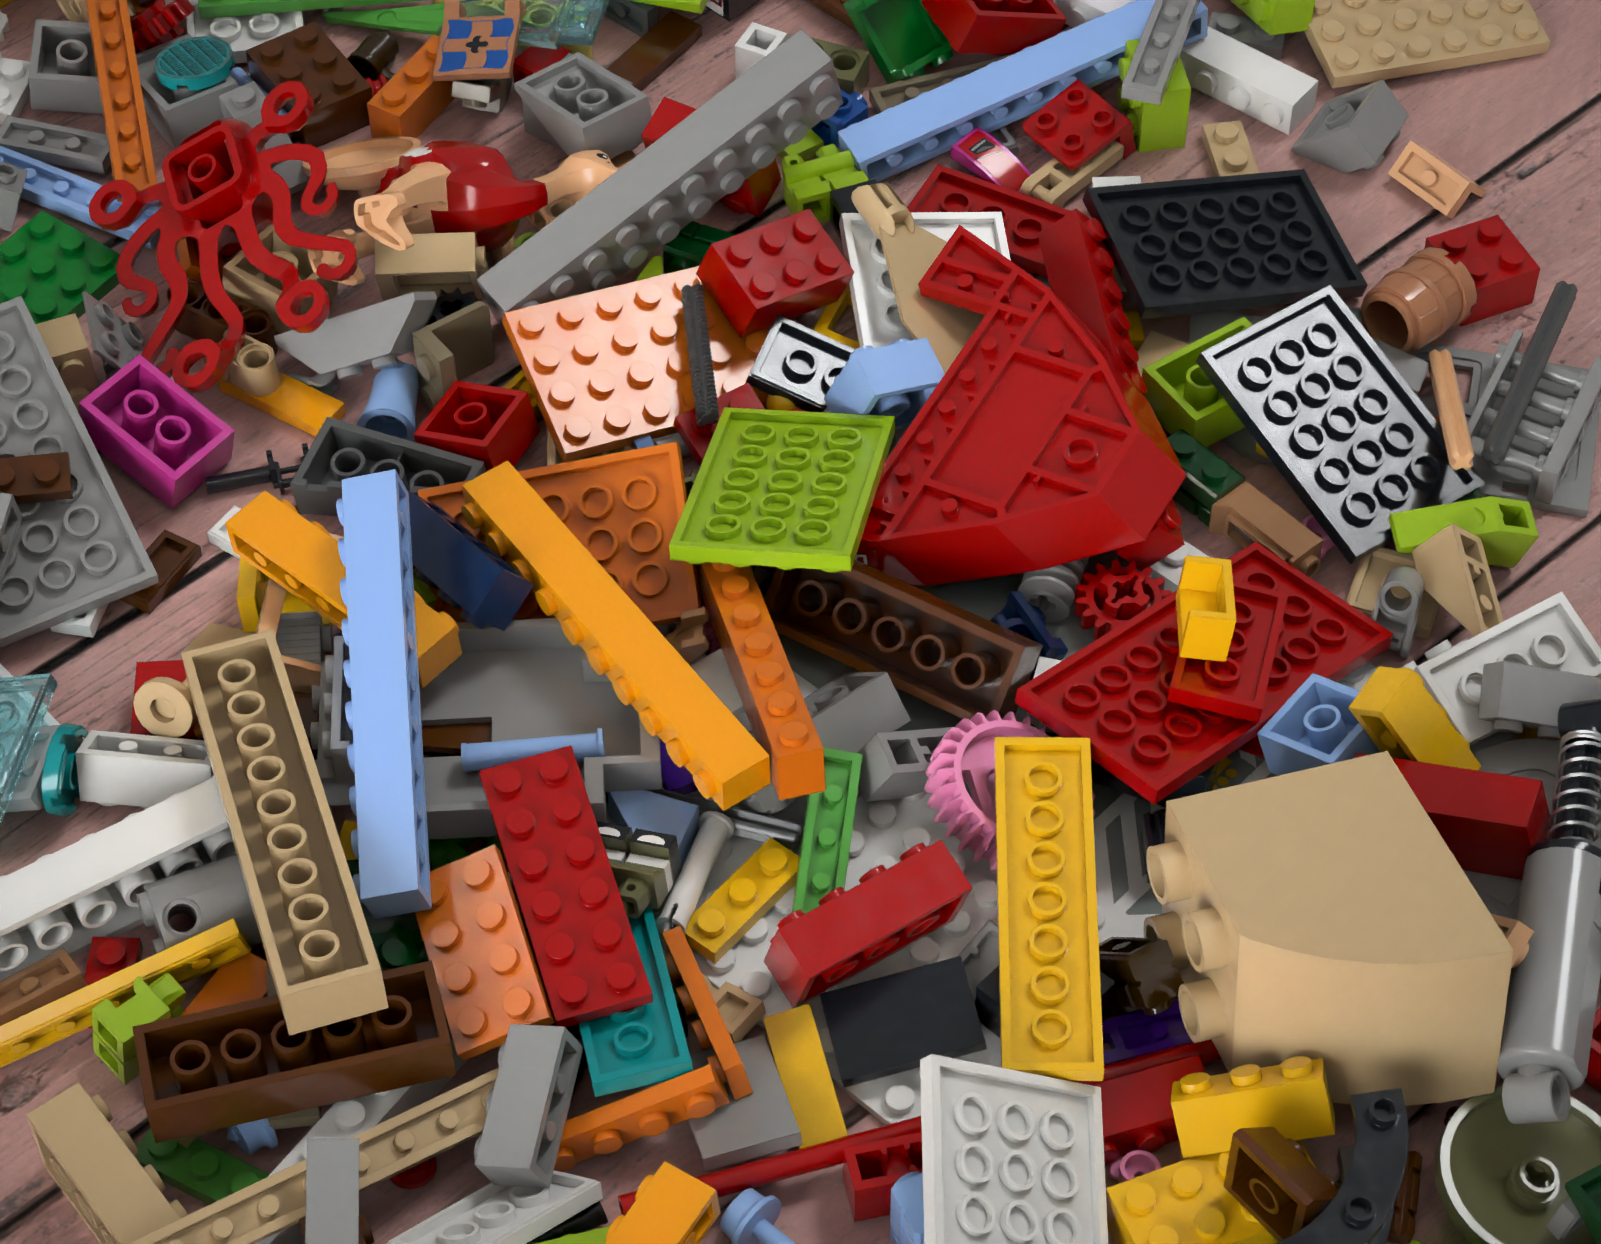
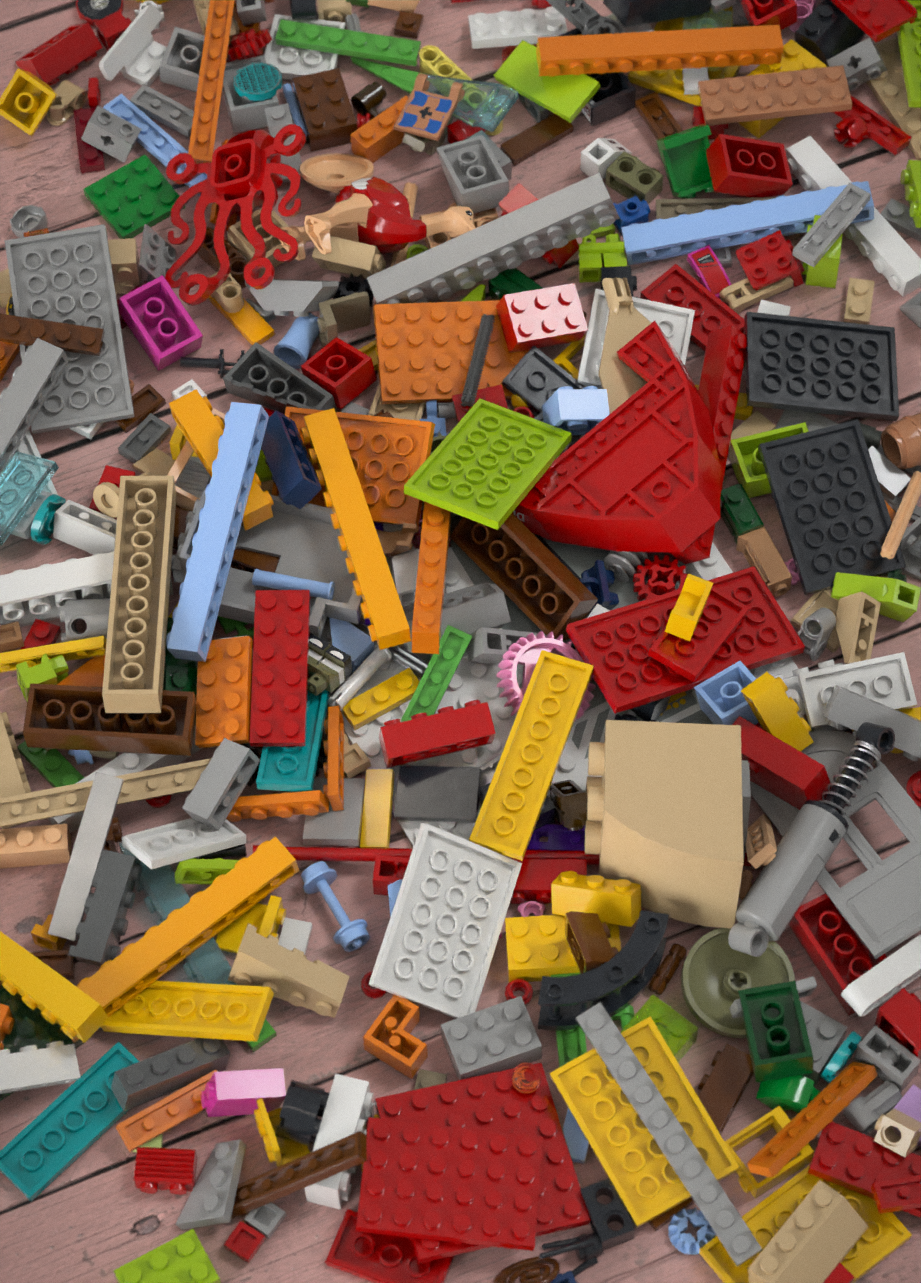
camera: 20 degrees right, 10 degrees up
(186, 611) = (144, 438): none -> dark grey plate

